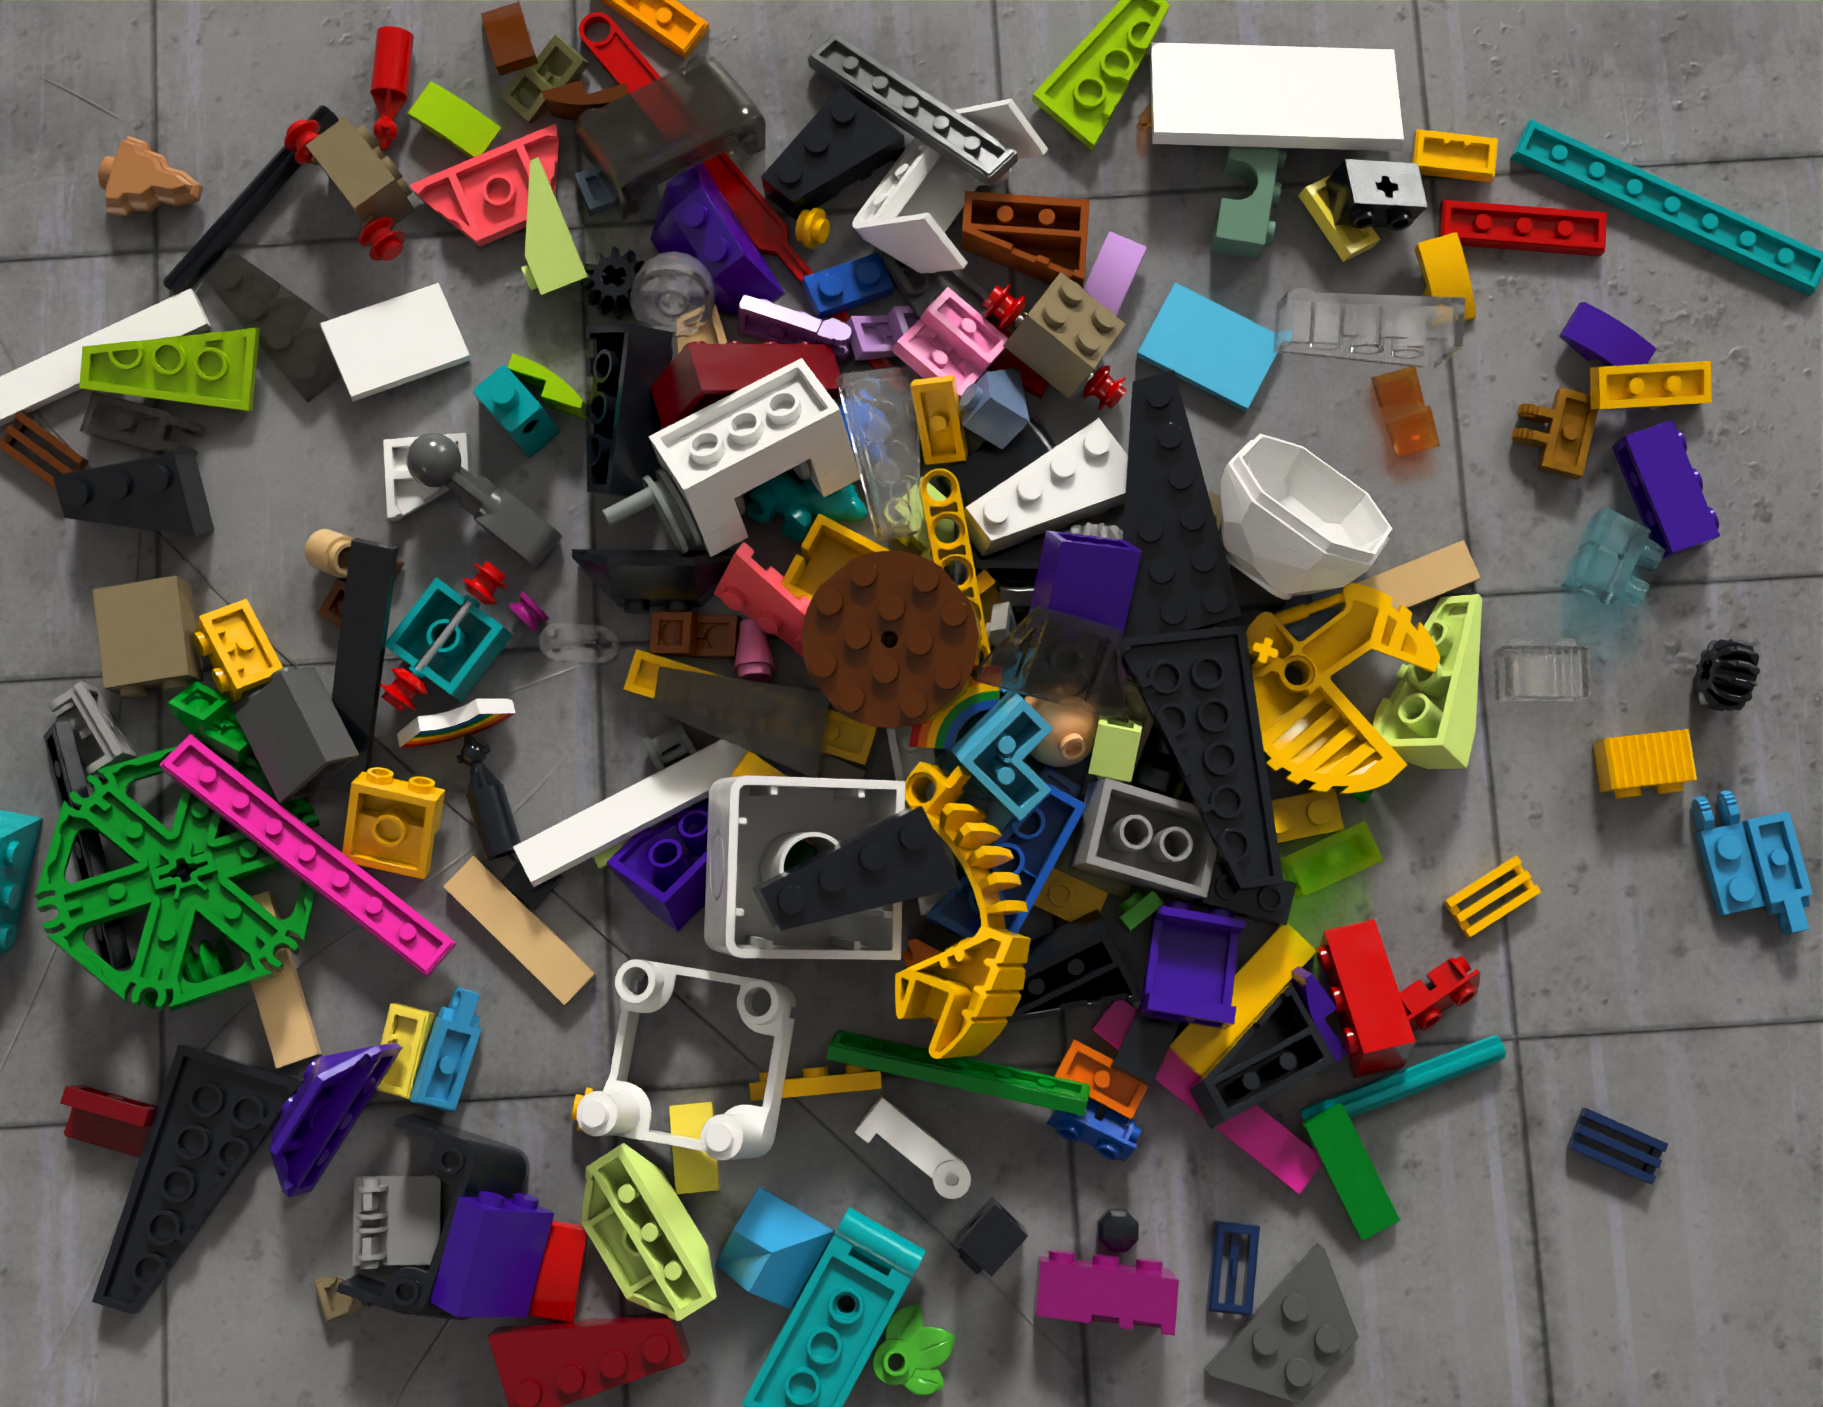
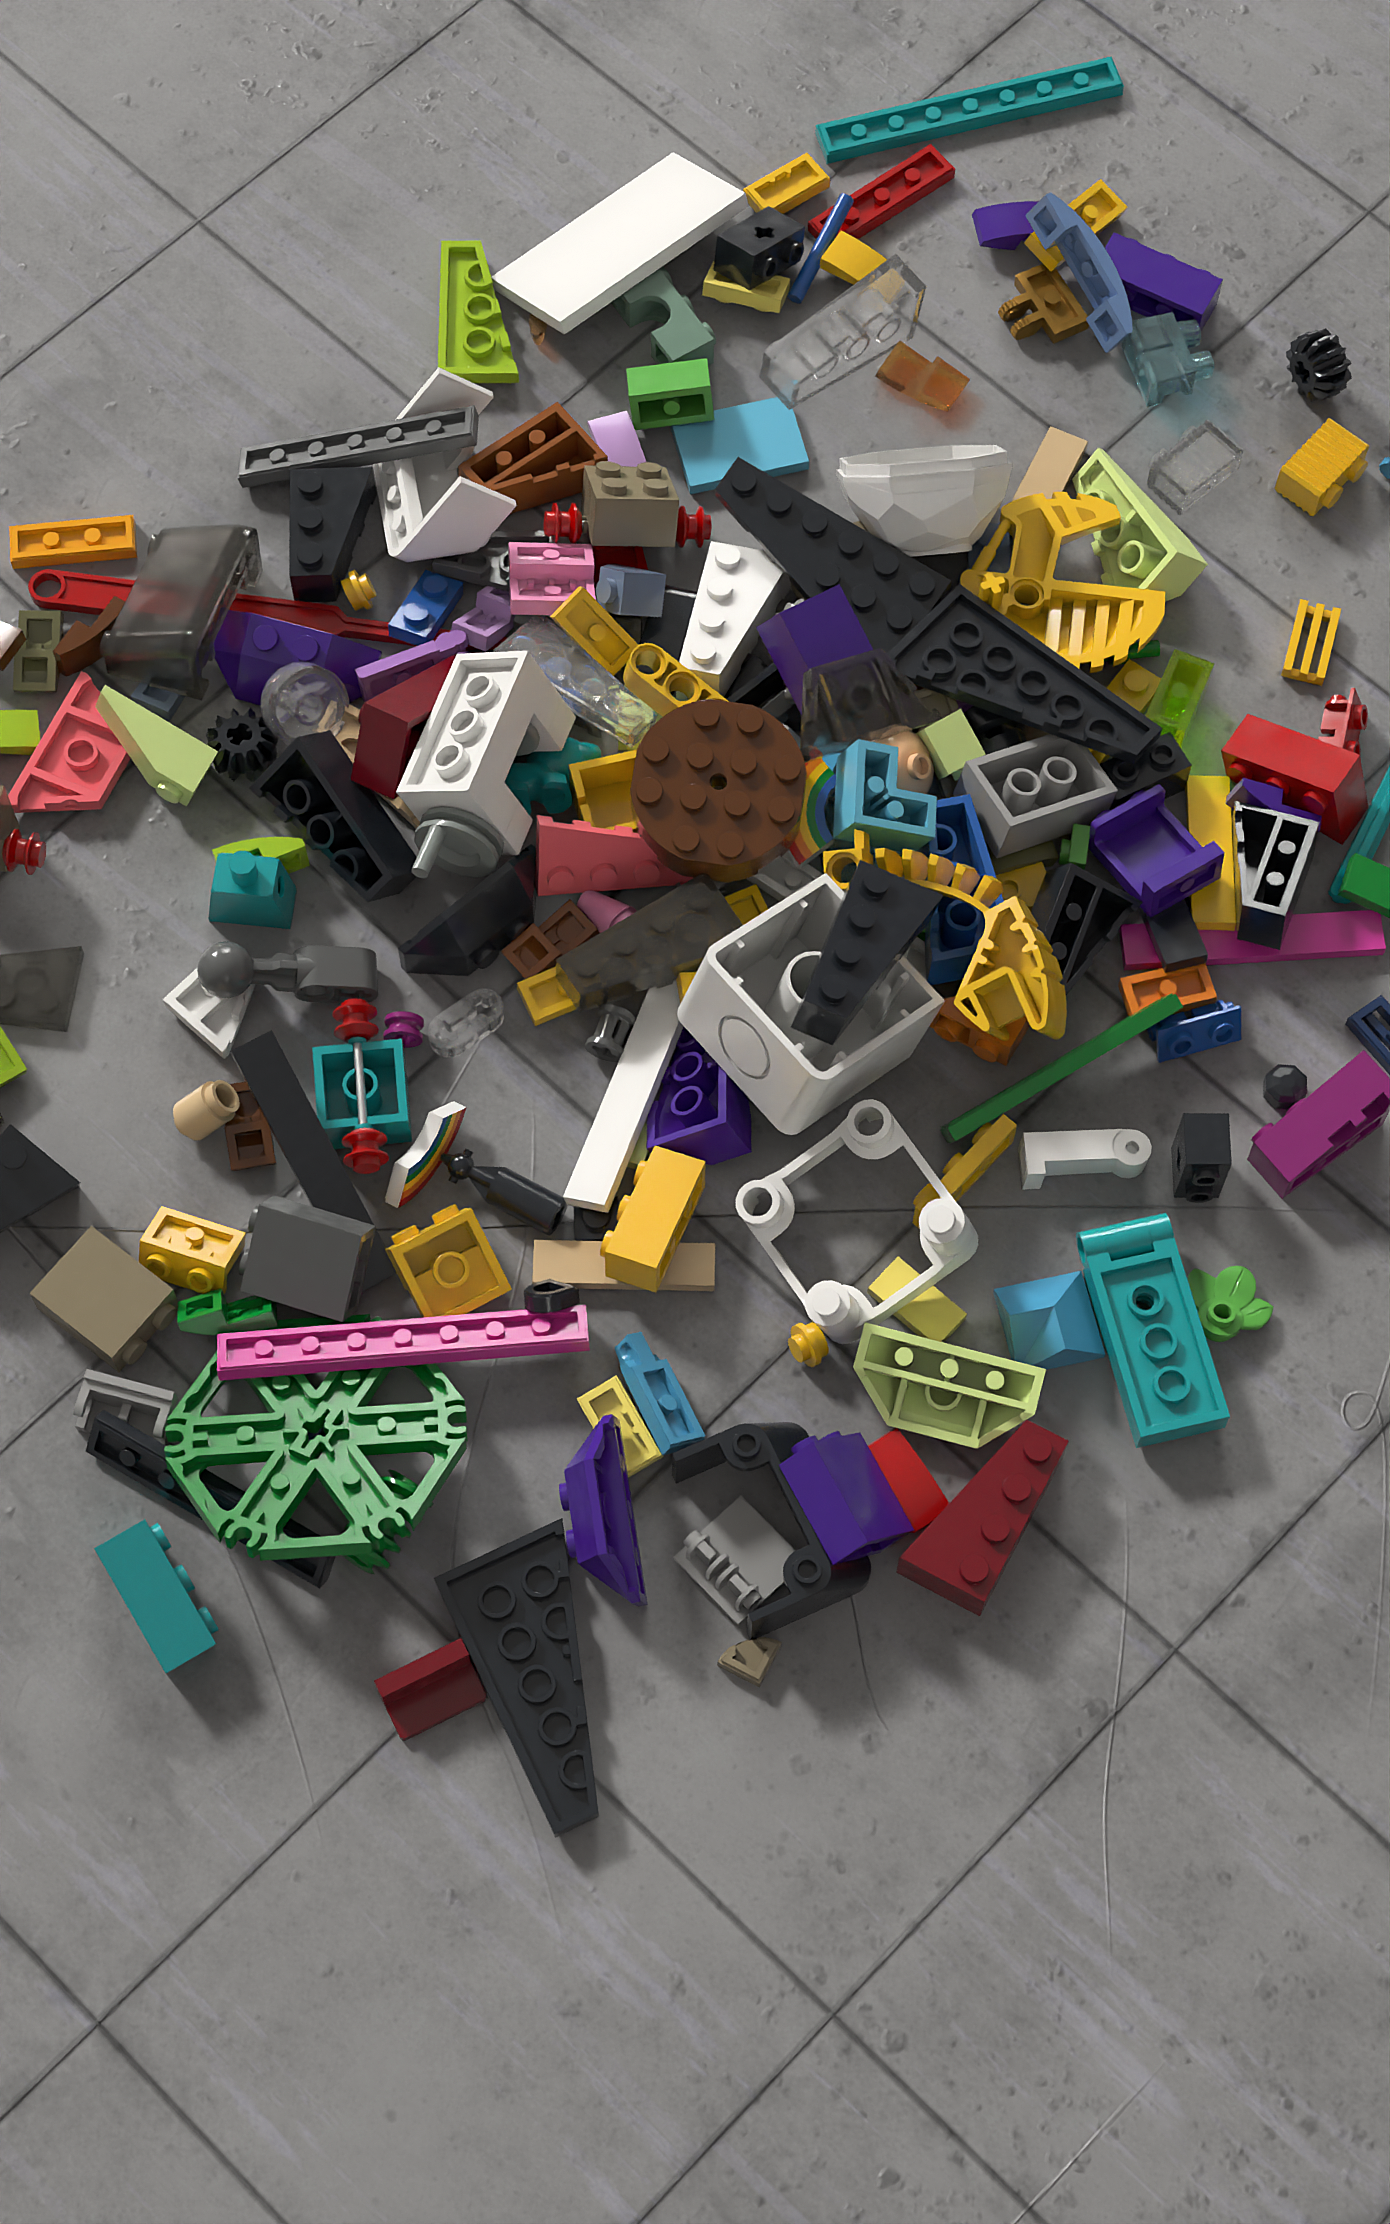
camera: 45 degrees left, 15 degrees down
(284, 1005) = (488, 1486): tan tile -> none
(395, 342) = (102, 924): white tile -> none
(435, 913) = (550, 1296): none -> black tile
(561, 919) = (653, 1218): none -> yellow brick
(1190, 262) = (670, 394): none -> bright green brick
(1433, 230) = (821, 244): none -> blue bar
(1621, 438) = (1091, 265): none -> medium blue slope

